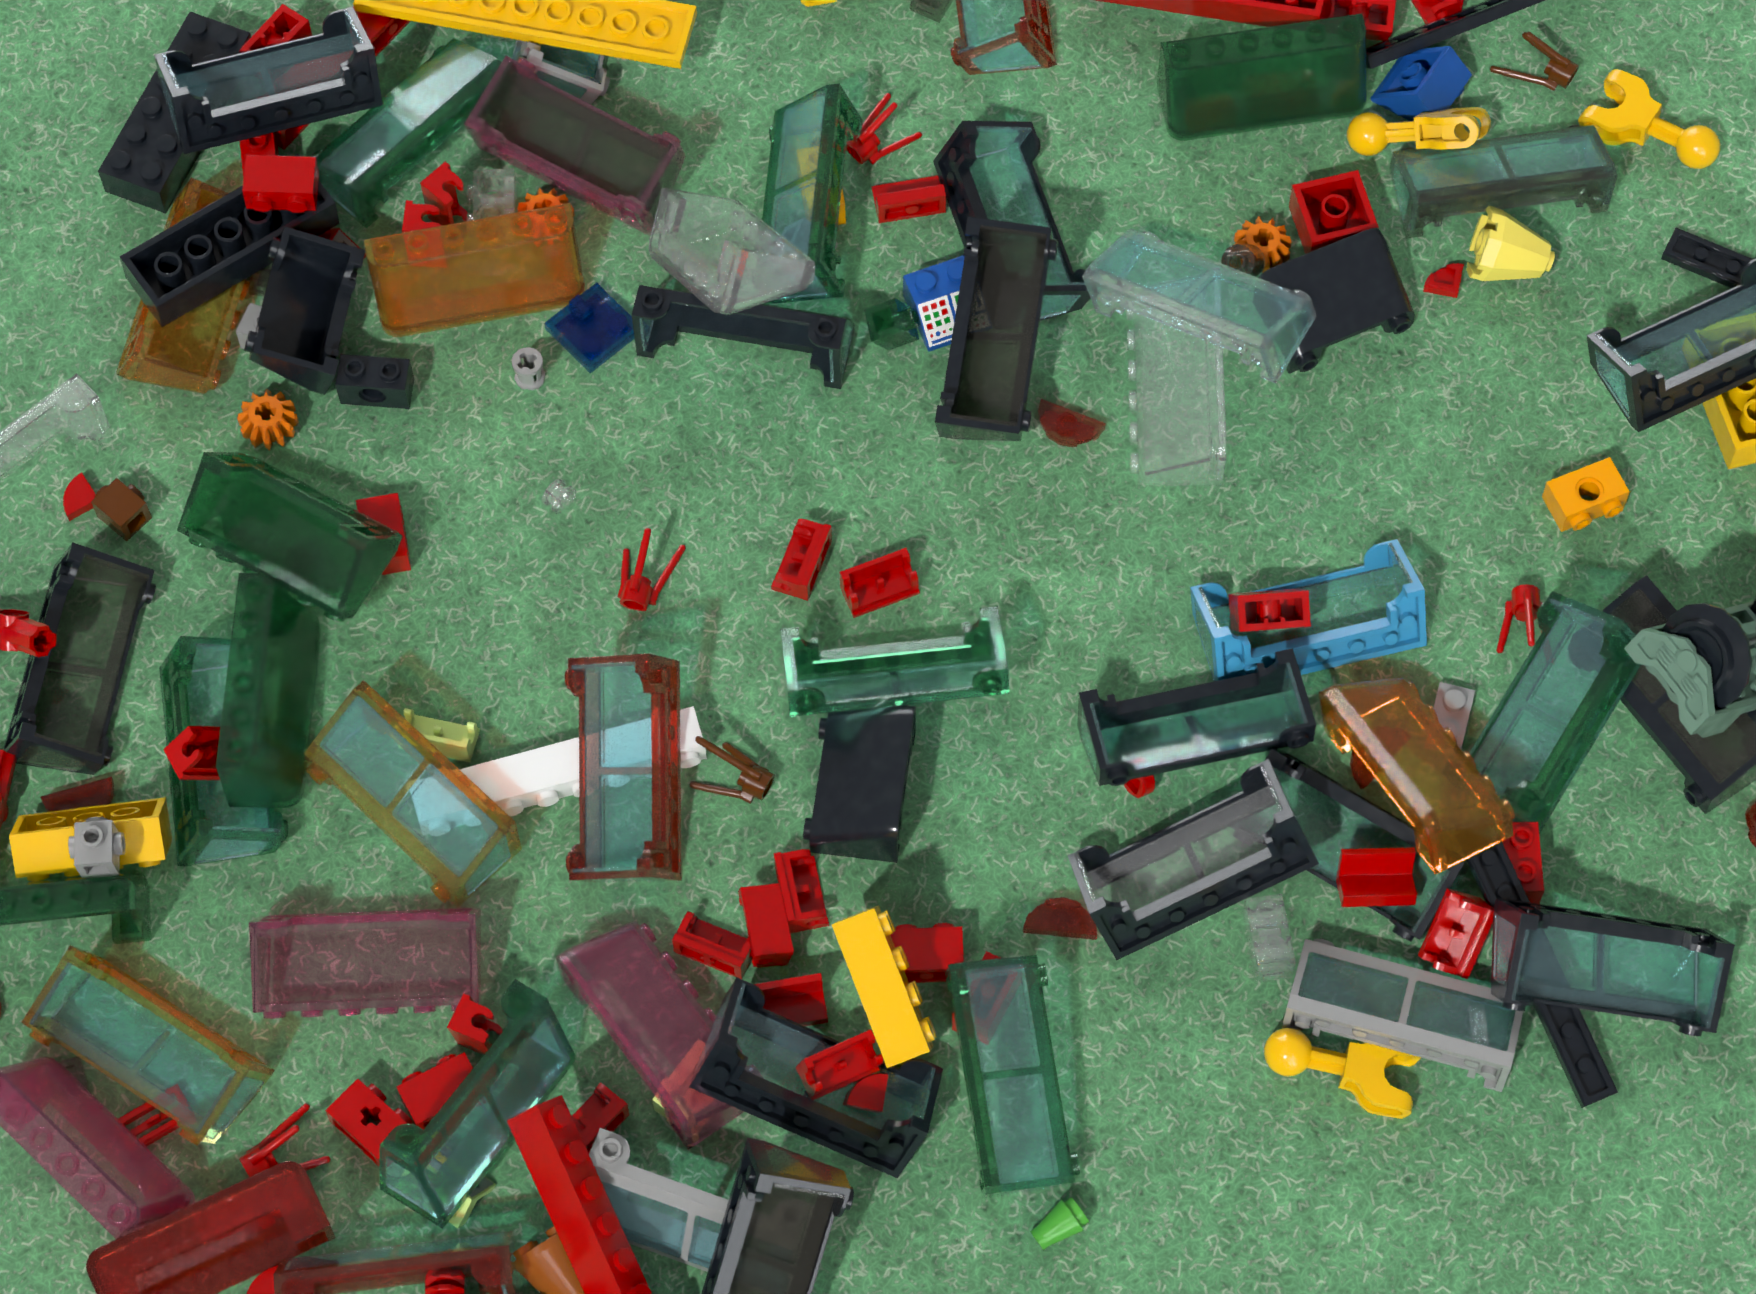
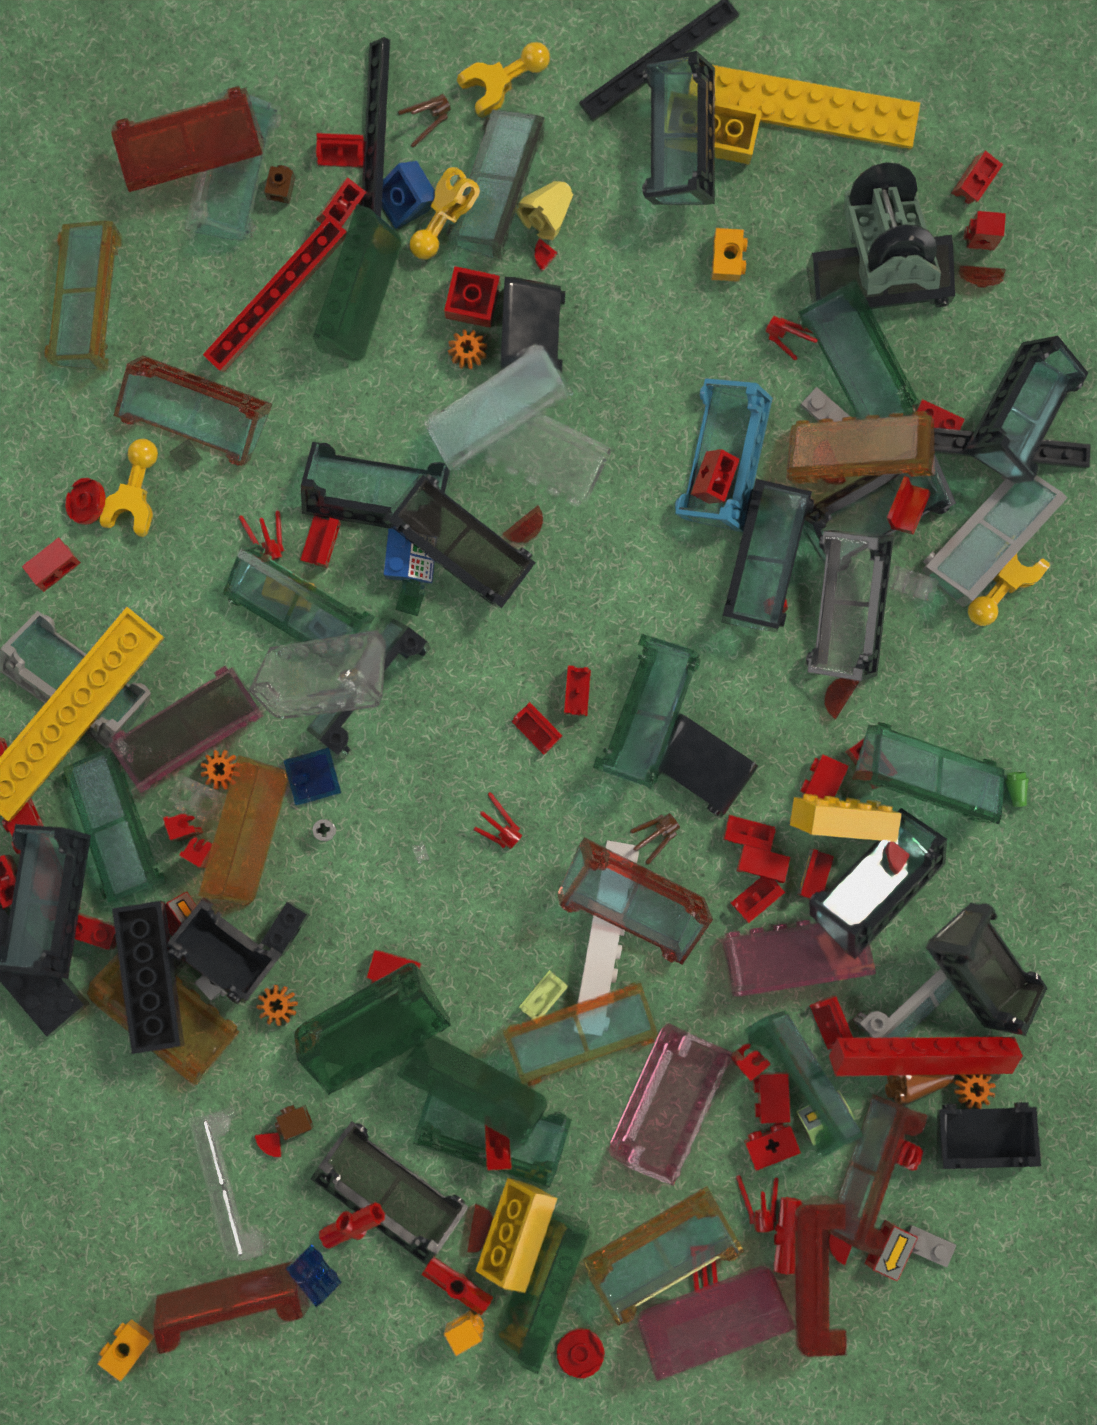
camera: 65 degrees left, 20 degrees up
(96, 847) = (544, 1248): light grey brick -> none
(280, 183) = (134, 931): red brick -> none
(839, 1065) = (876, 866): red hinge -> none
(1252, 258) = (481, 367): clear smoke brick -> none
(1457, 933) = (965, 480): red hinge -> none

